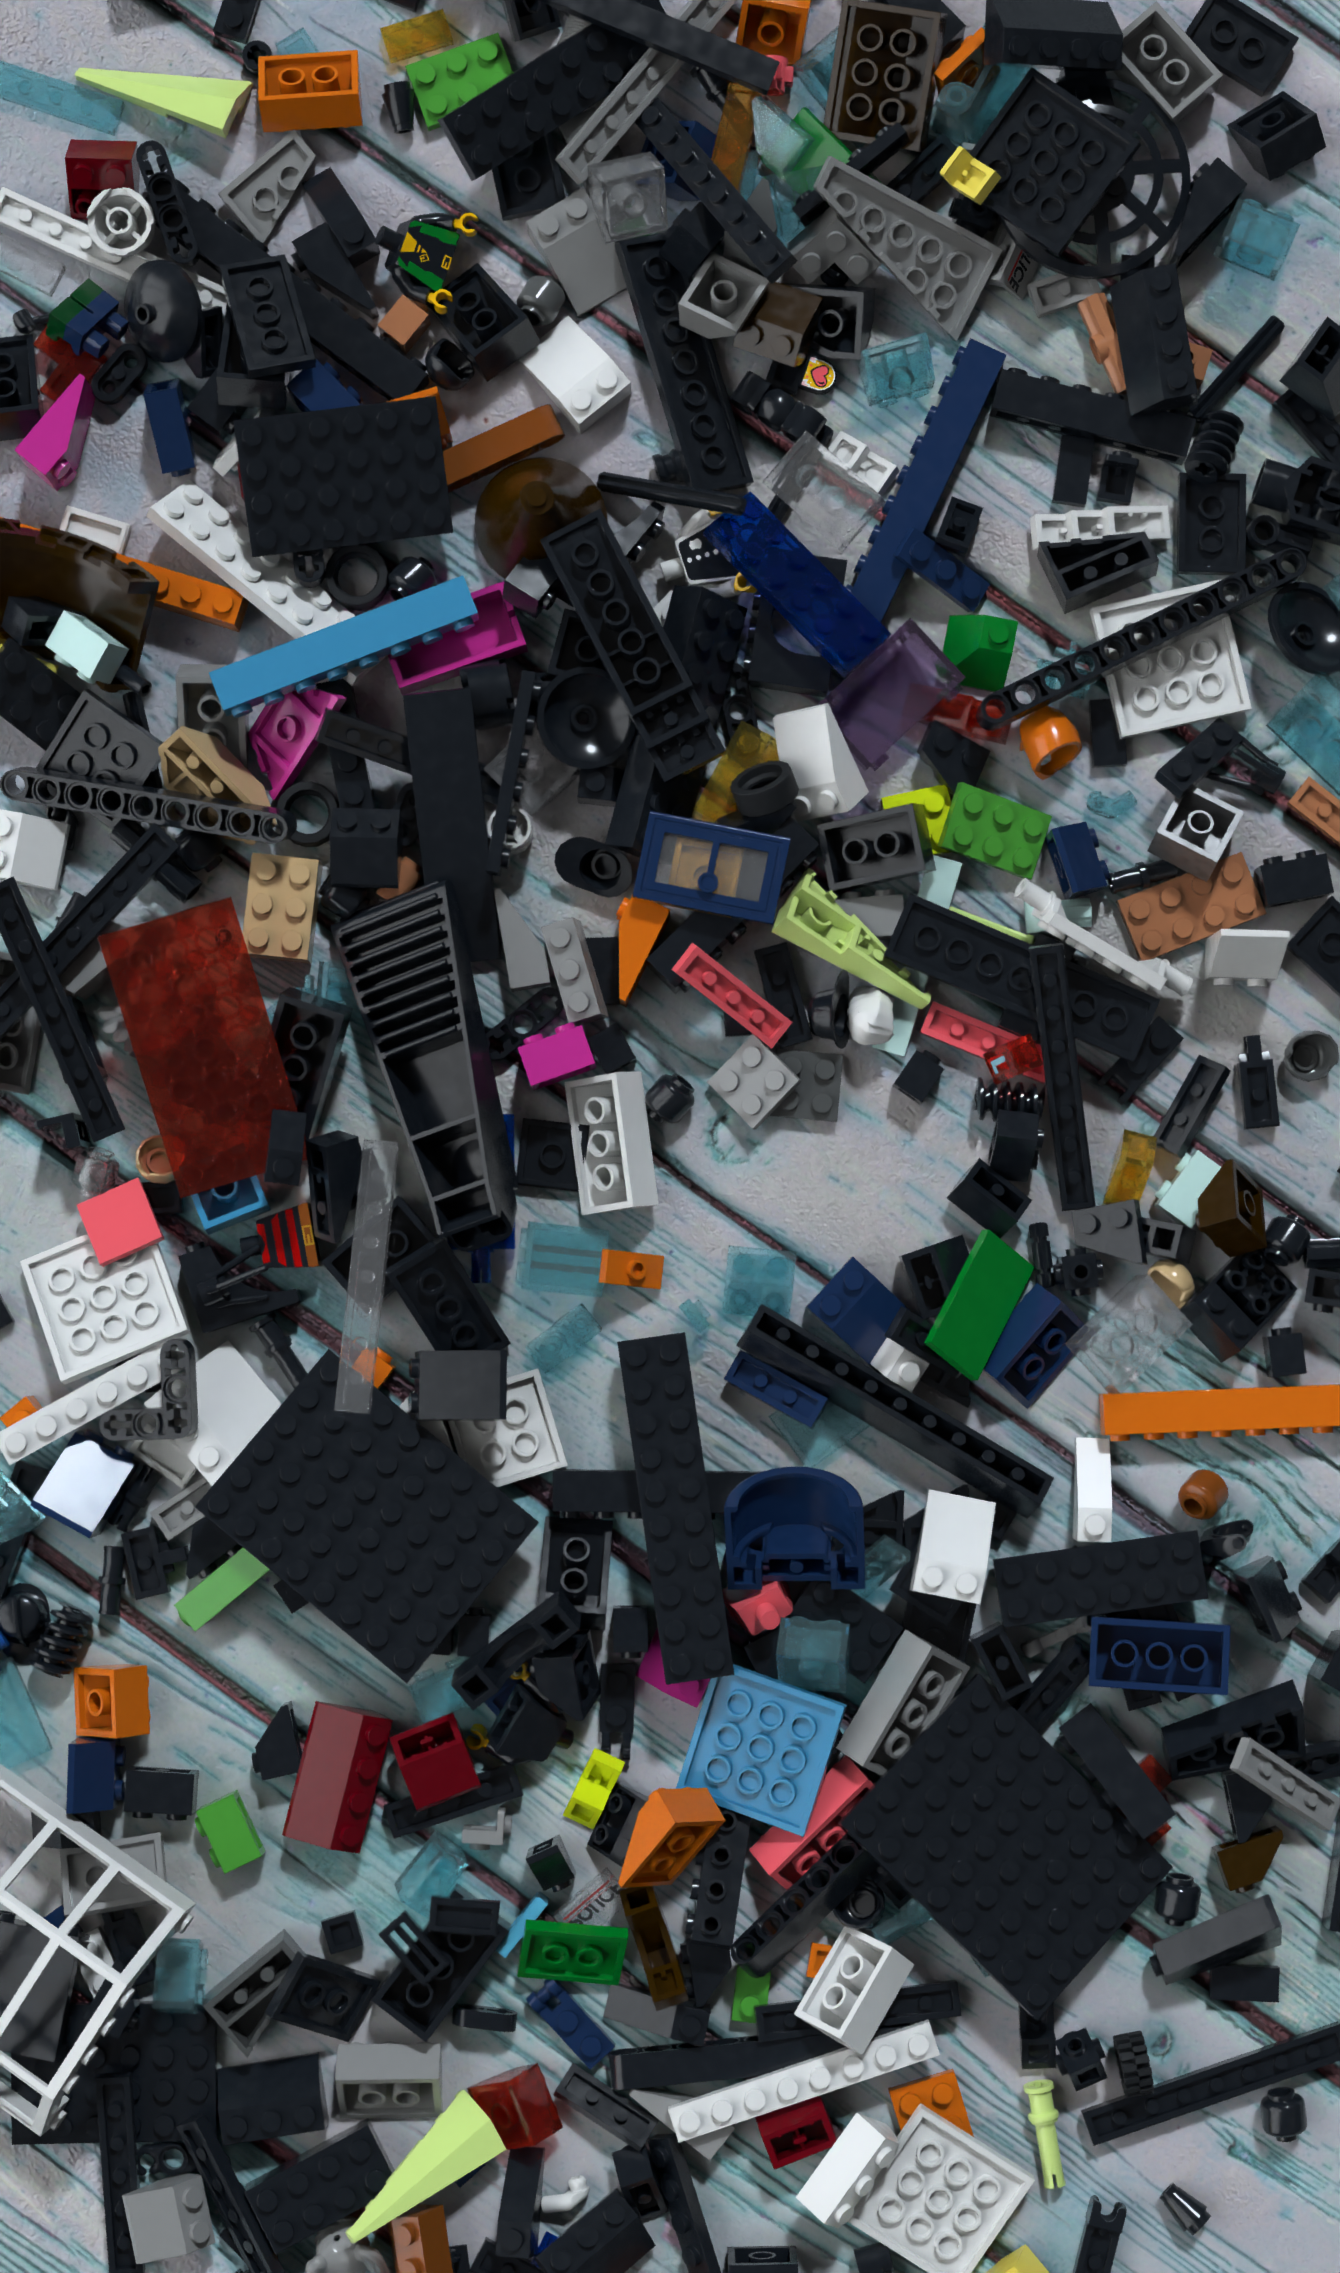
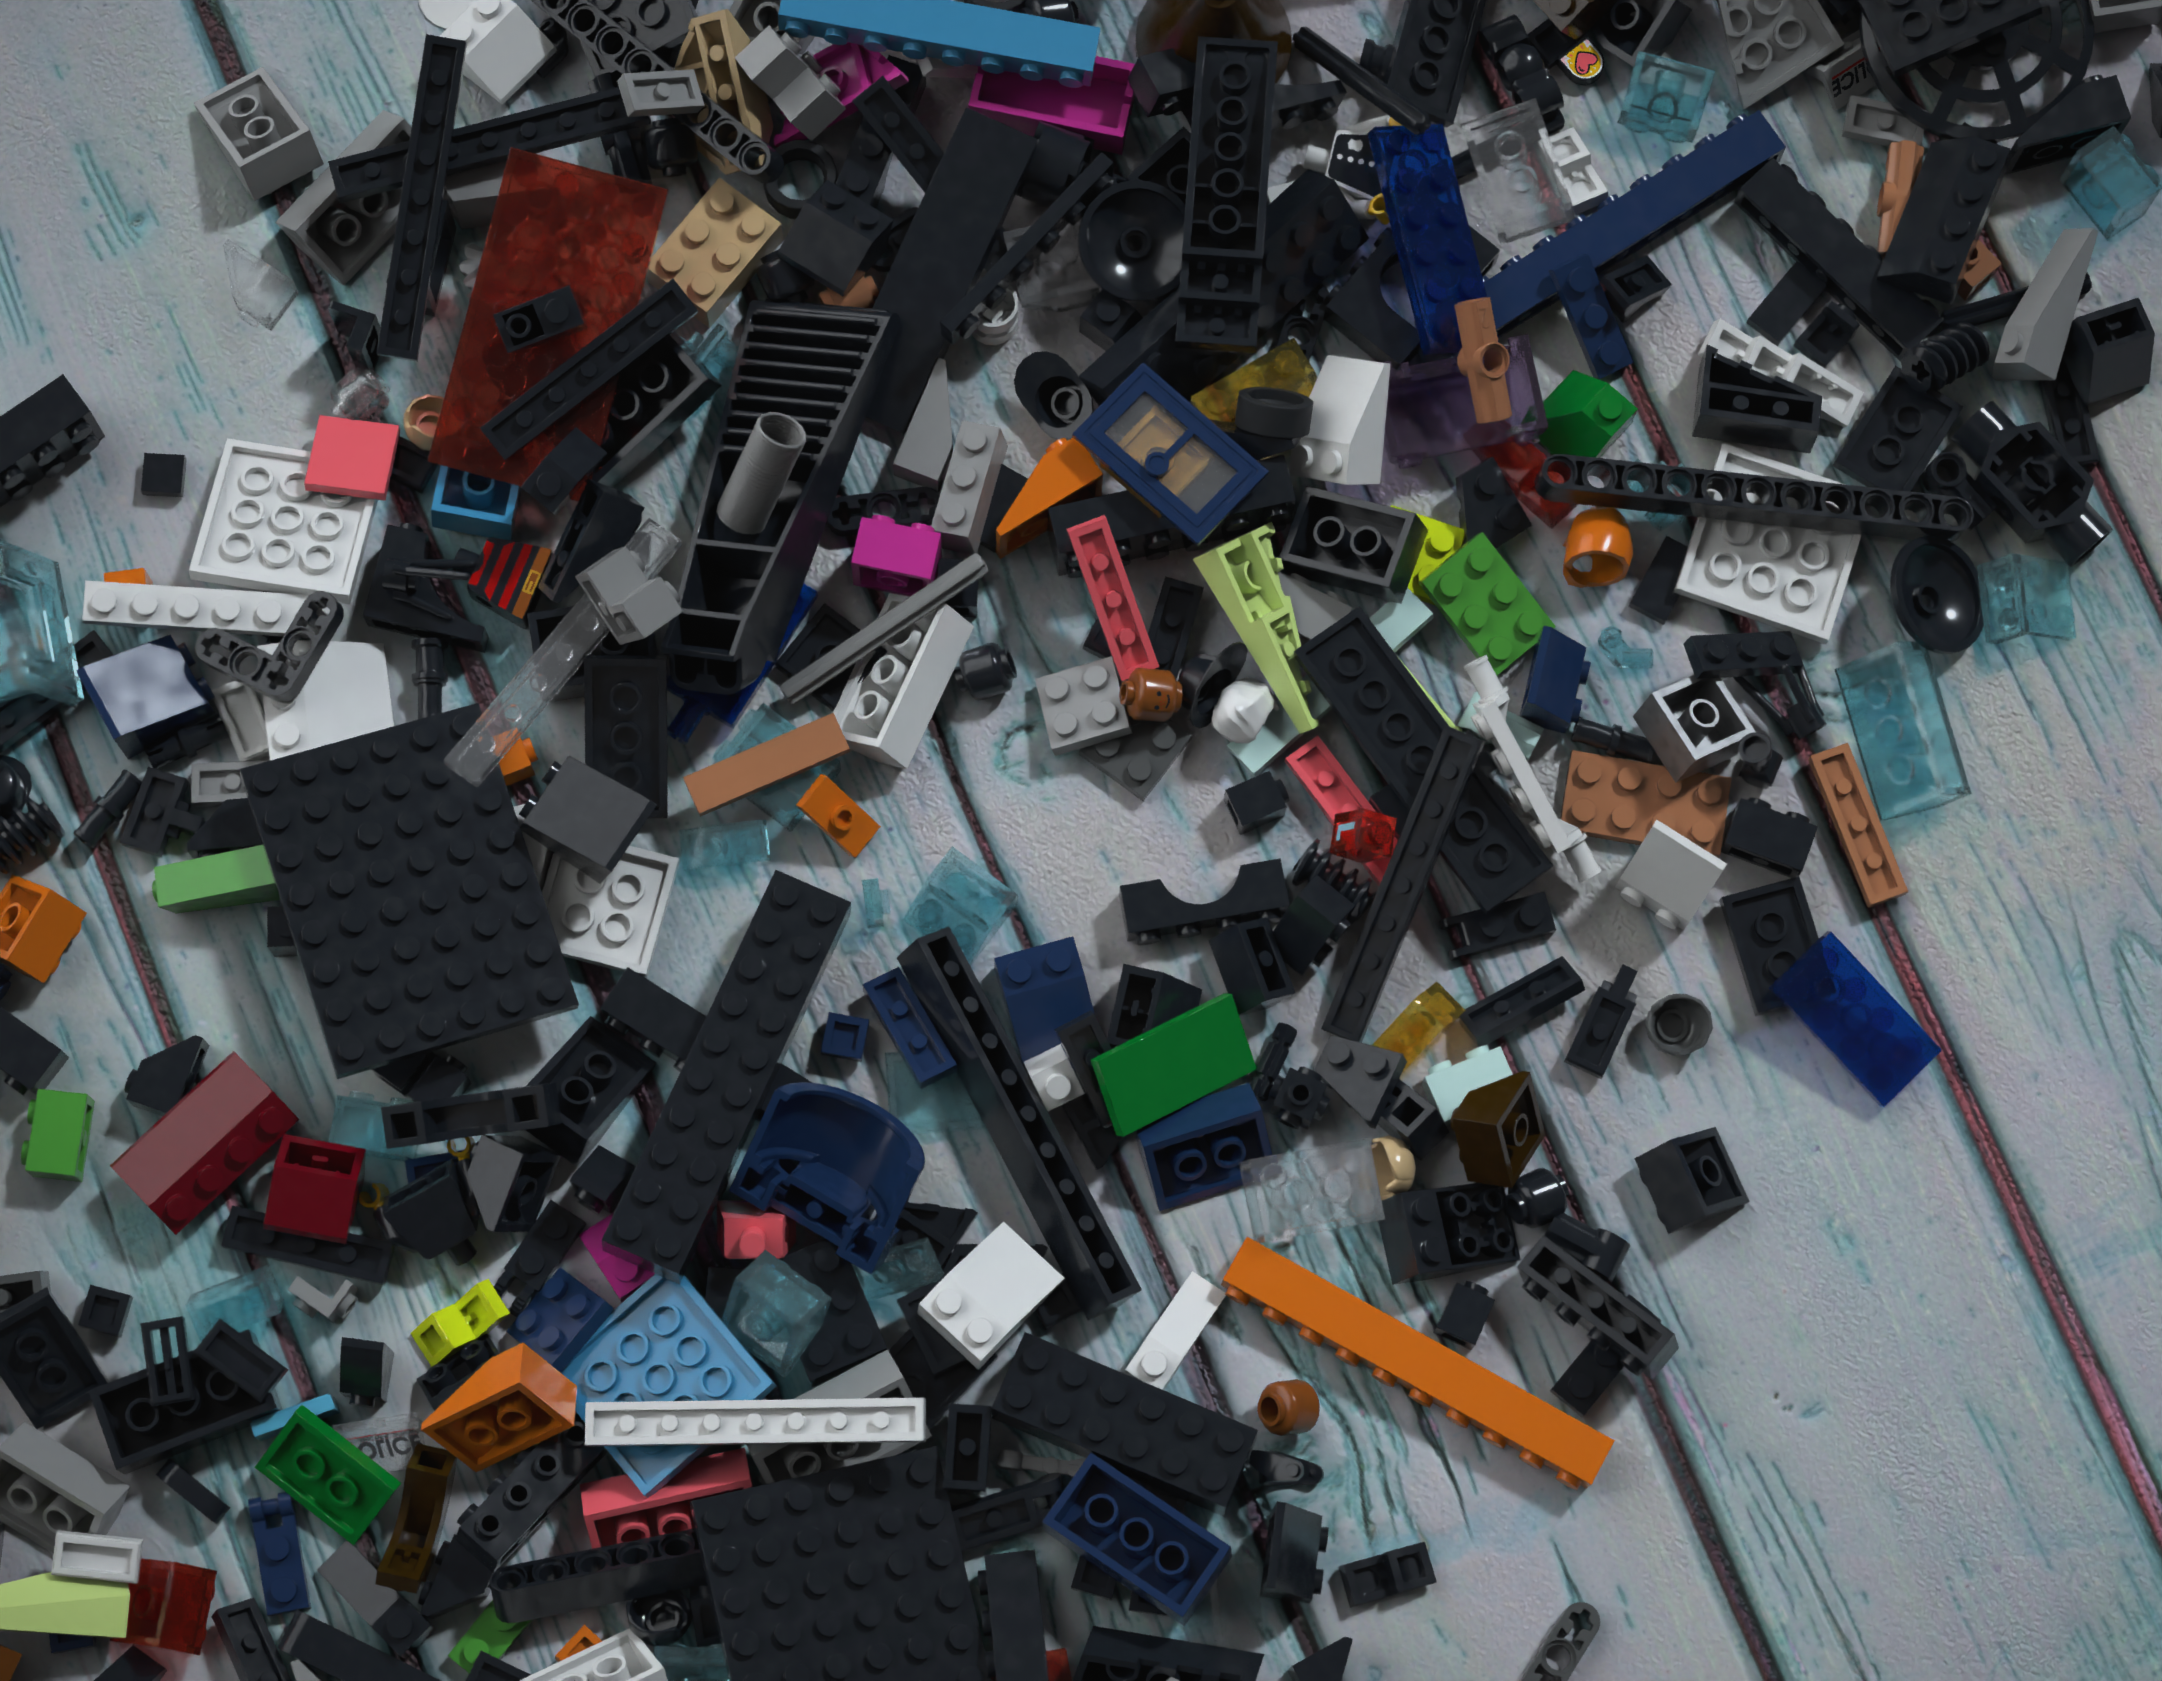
camera: 25 degrees right, 10 degrees down
(176, 823) = (660, 93): none -> light grey plate
(201, 1052) = (541, 320): none -> black slope
(257, 1063) = (589, 369): none -> black plate
(261, 749) = (792, 81): none -> light grey brick
(396, 1216) = (626, 598): none -> light grey brick
(427, 1061) = (761, 473): none -> light grey piece
(451, 2107) = (97, 1557): none -> white tile
(560, 1266) = (766, 764): none -> nougat tile
(581, 1115) = (884, 628): none -> light grey axle
(663, 1746) = (560, 1319): none -> dark blue plate
(734, 1422) = (845, 1037): none -> dark blue plate
(800, 1047) = (1151, 694): none -> dark orange head
(851, 1743) = (755, 1422): none -> white plate
(890, 656) = (1479, 340): none -> nougat piece
(957, 1142) = (1154, 912): none -> black arch
(1256, 829) = (1759, 760): none -> black leg
(1270, 383) = (2042, 320): none -> light grey wedge

